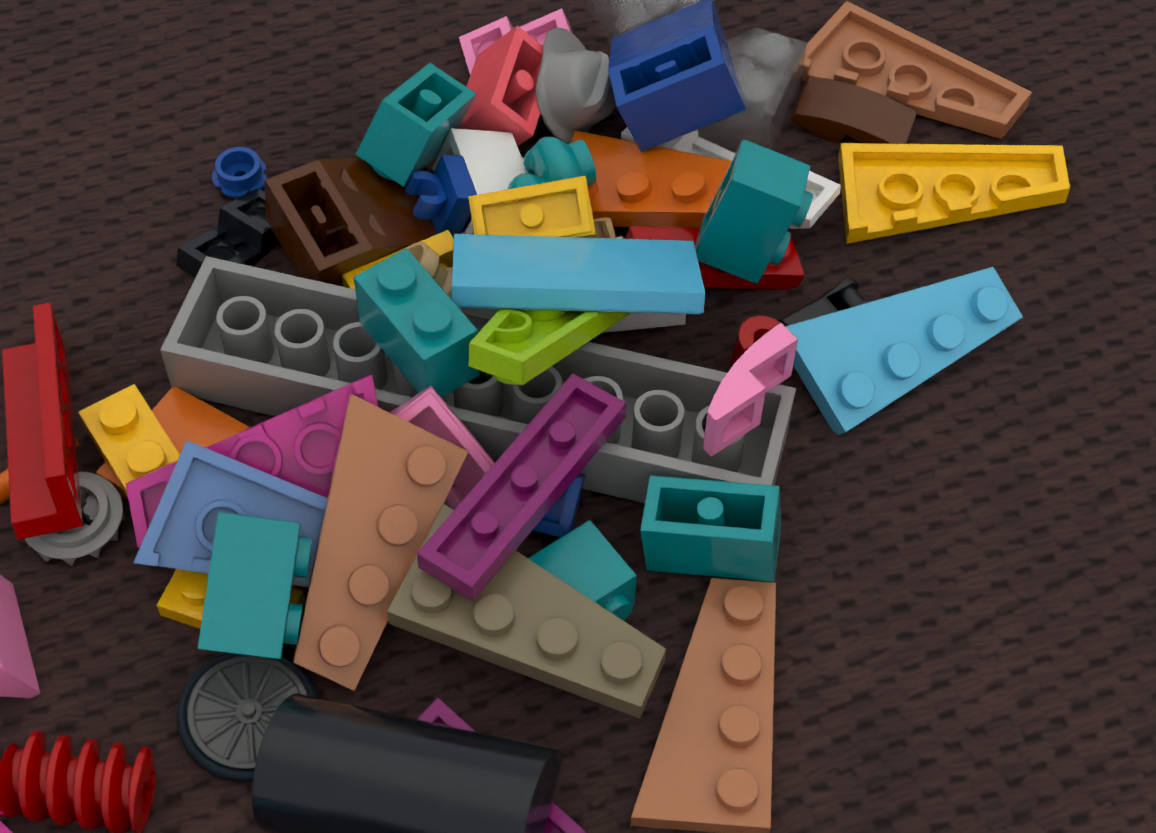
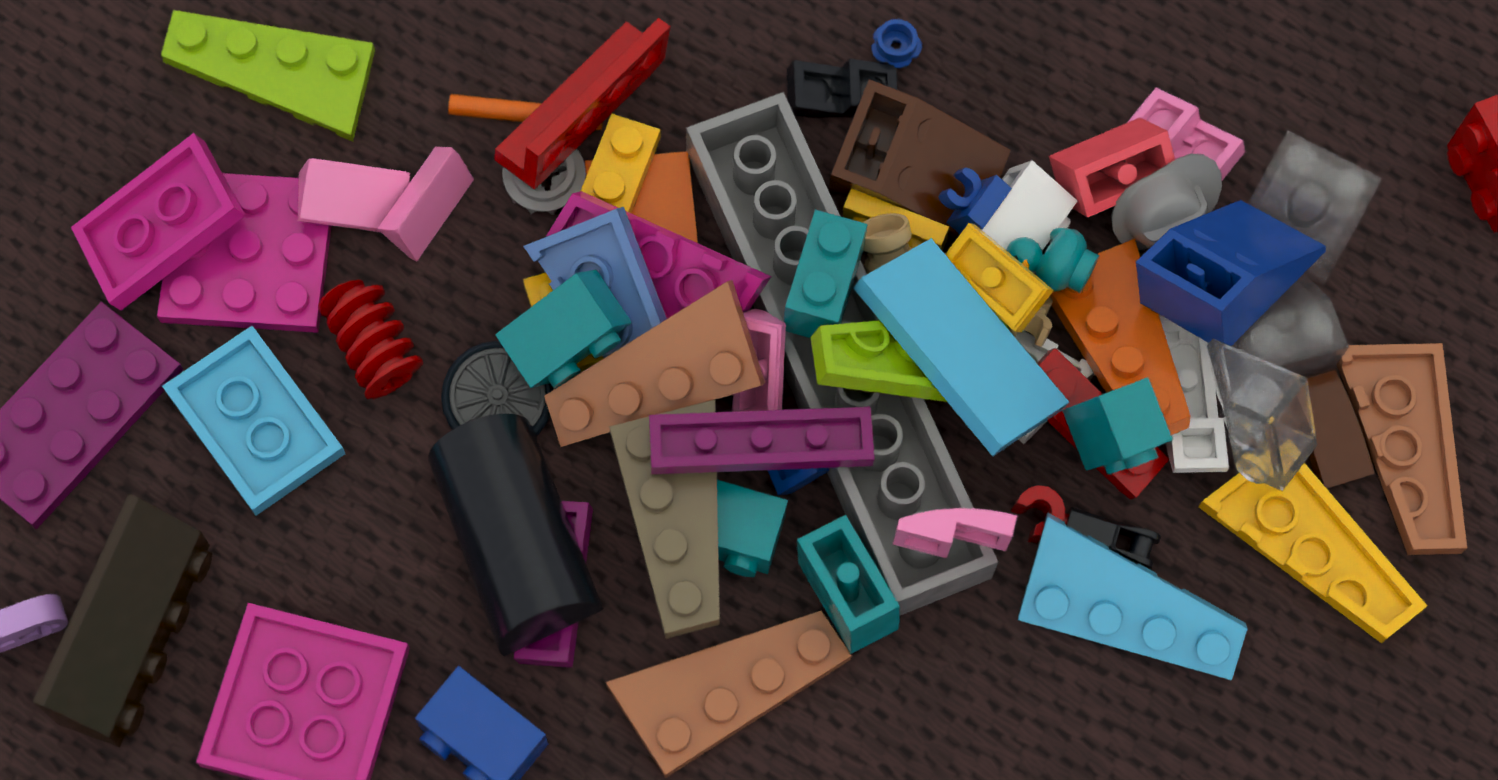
camera: 50 degrees right, 15 degrees up
(414, 123) = (1011, 134): teal brick -> none
(815, 120) = (1263, 415): none -> clear slope

